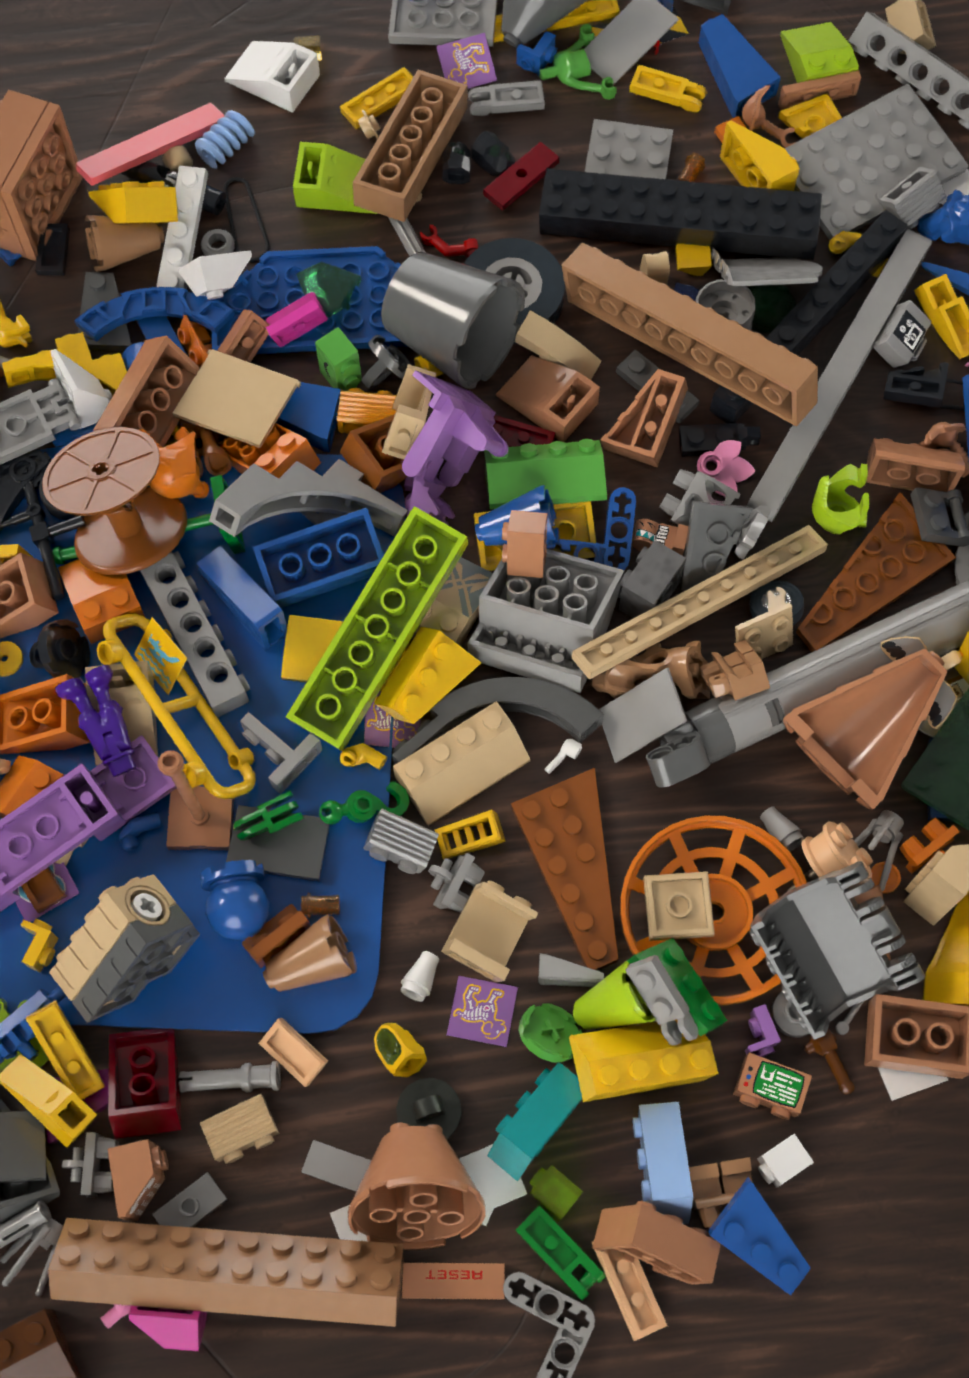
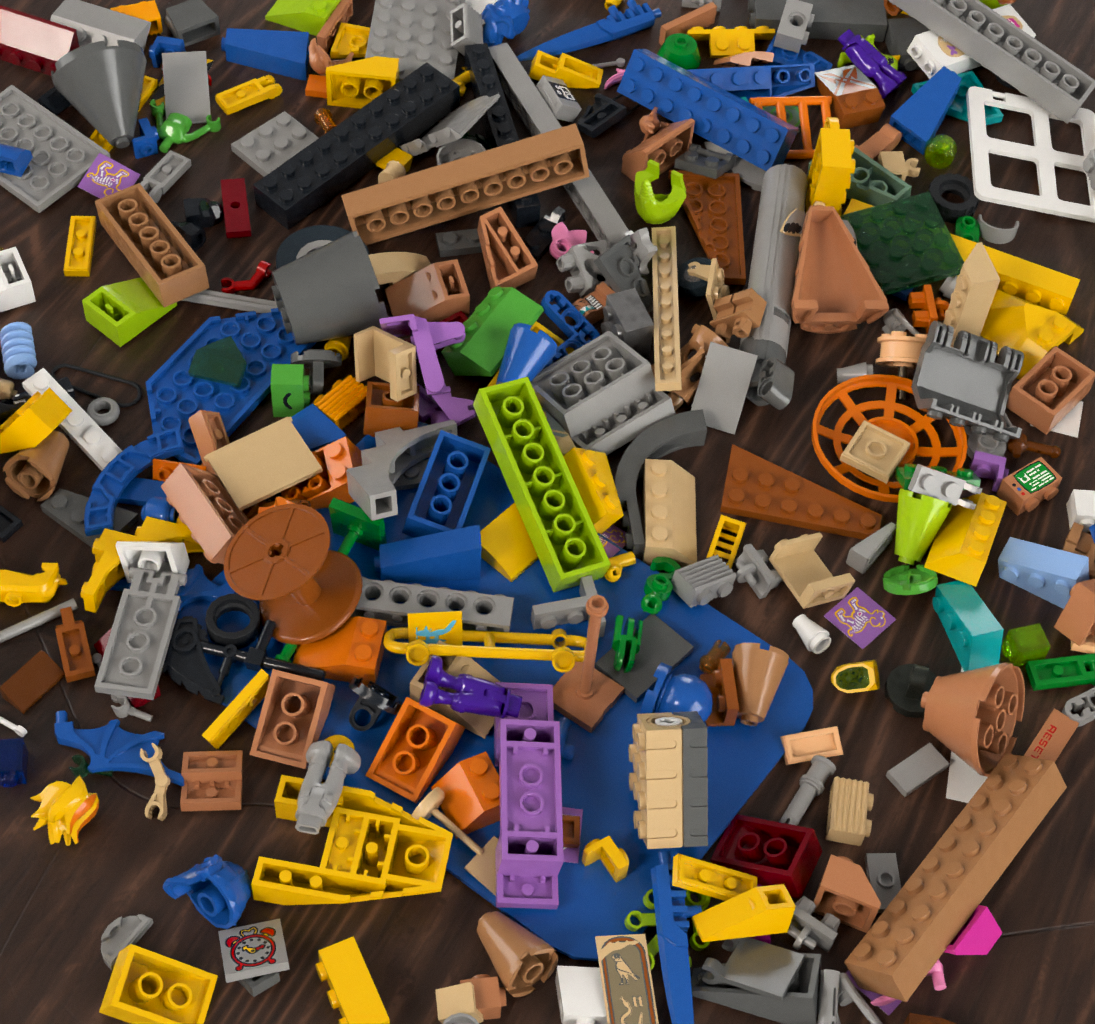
camera: 60 degrees left, 15 degrees down
(214, 273) = (141, 418): white slope -> none
(296, 319) = (228, 391): dark pink panel -> none
(369, 125) = (100, 263): tan plate -> none
(525, 544) = (551, 360): nougat brick -> none
(569, 748) = (705, 450): white hand -> none

